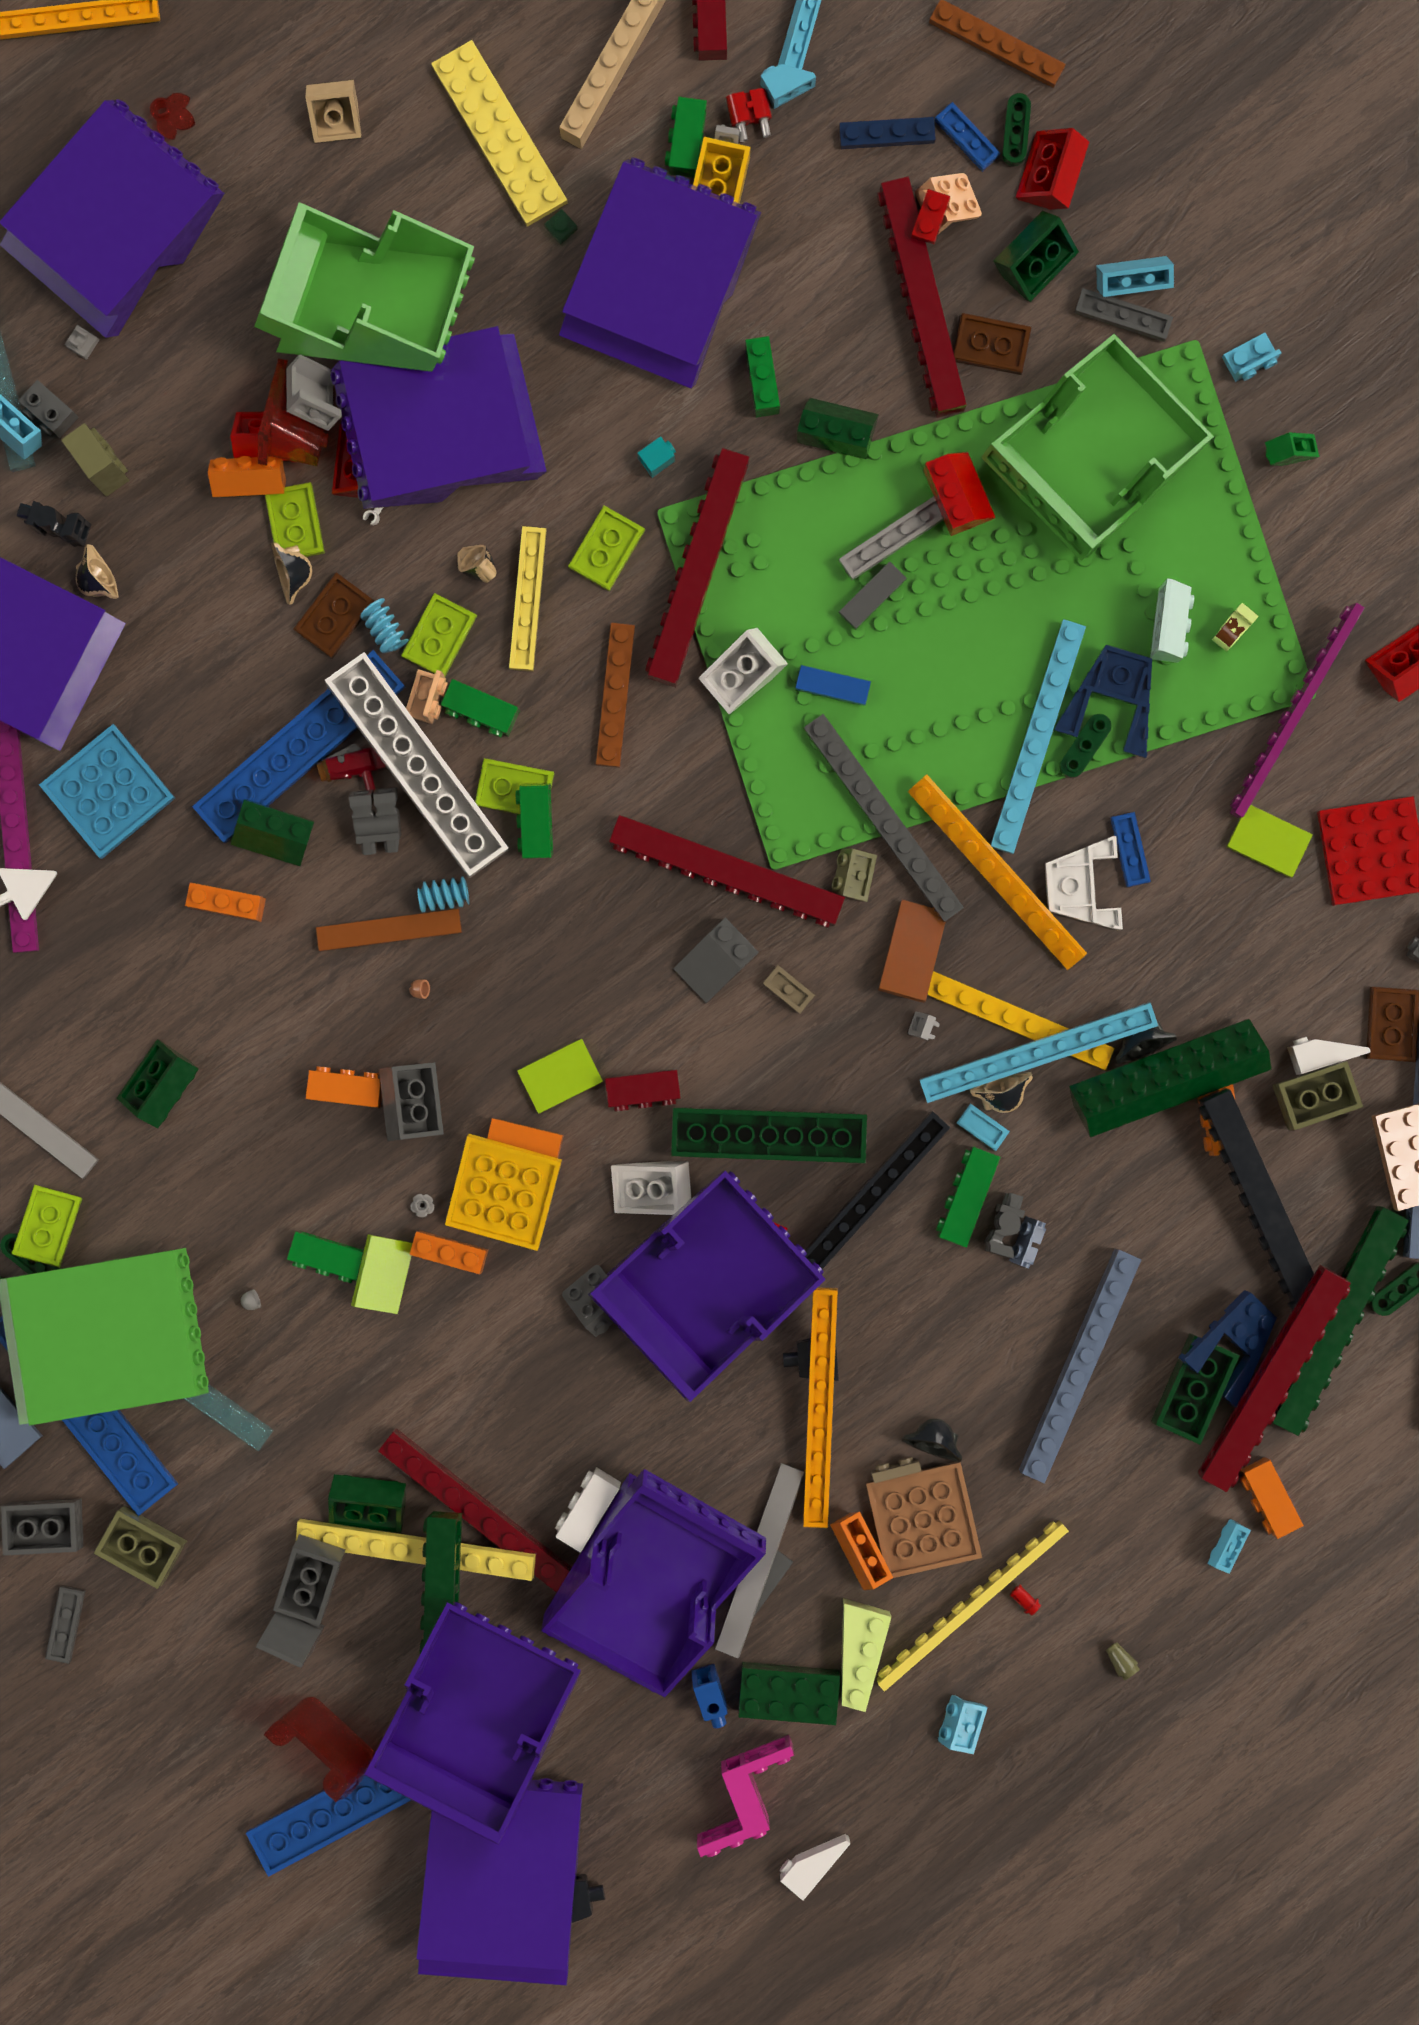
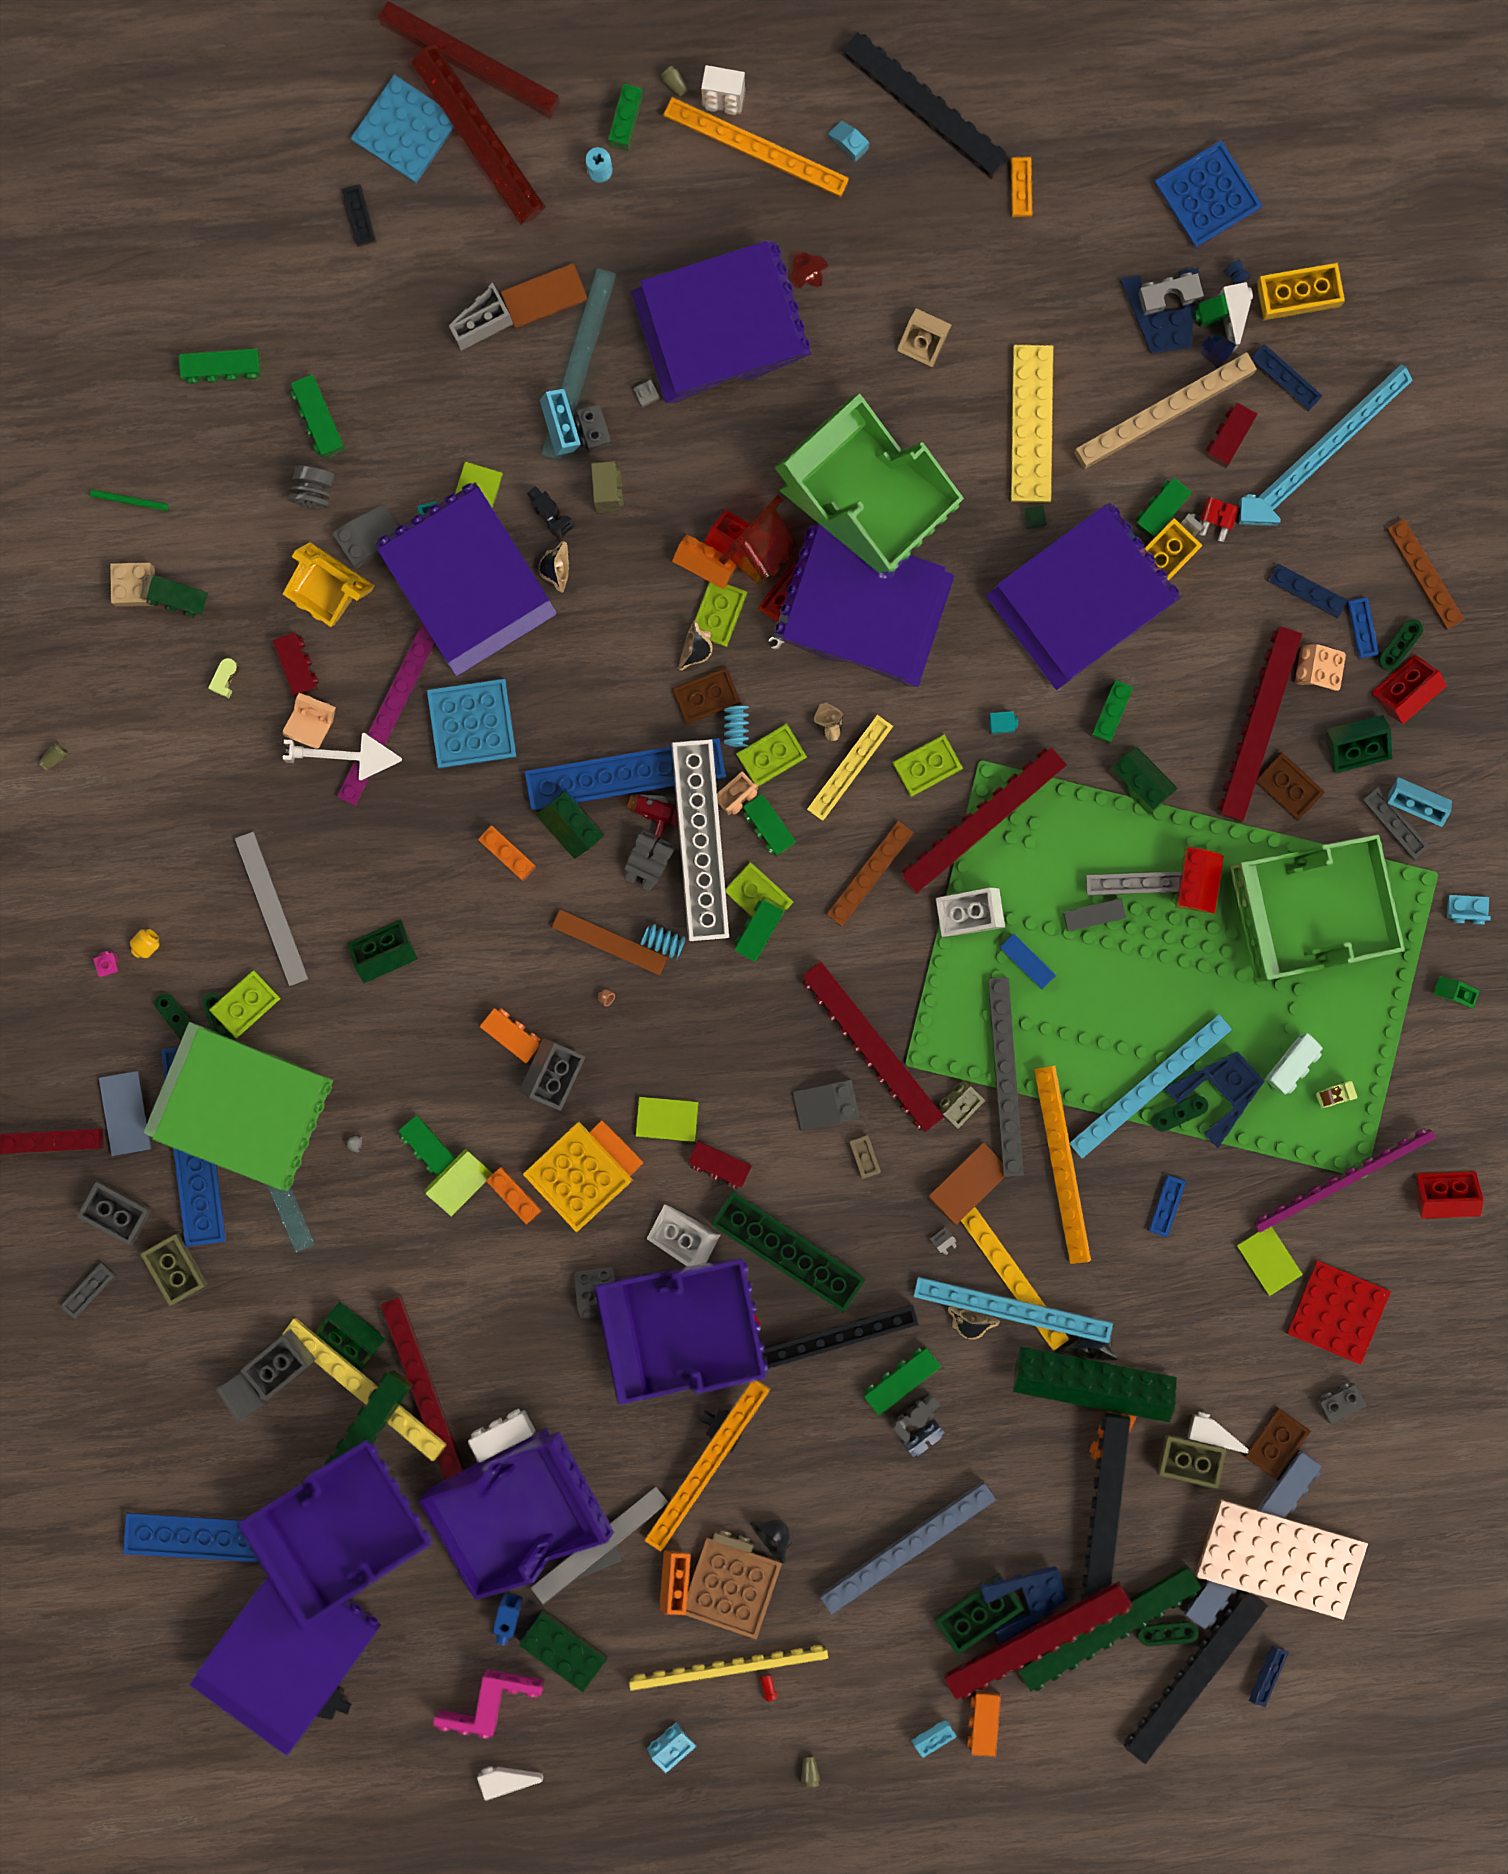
camera: 30 degrees right, 0 degrees up
(311, 392) = (785, 534): light grey panel -> none
(328, 1740) = (225, 1486): clear red windscreen -> none
(427, 1209) = (520, 1150): light grey plate -> none
(862, 1645) = (633, 1650): yellowish green wedge -> none
(931, 216) = (1300, 672): red plate -> none
(982, 1127) = (942, 1337): medium azure tile -> none
(1072, 885) = (1109, 1207): white wing -> none

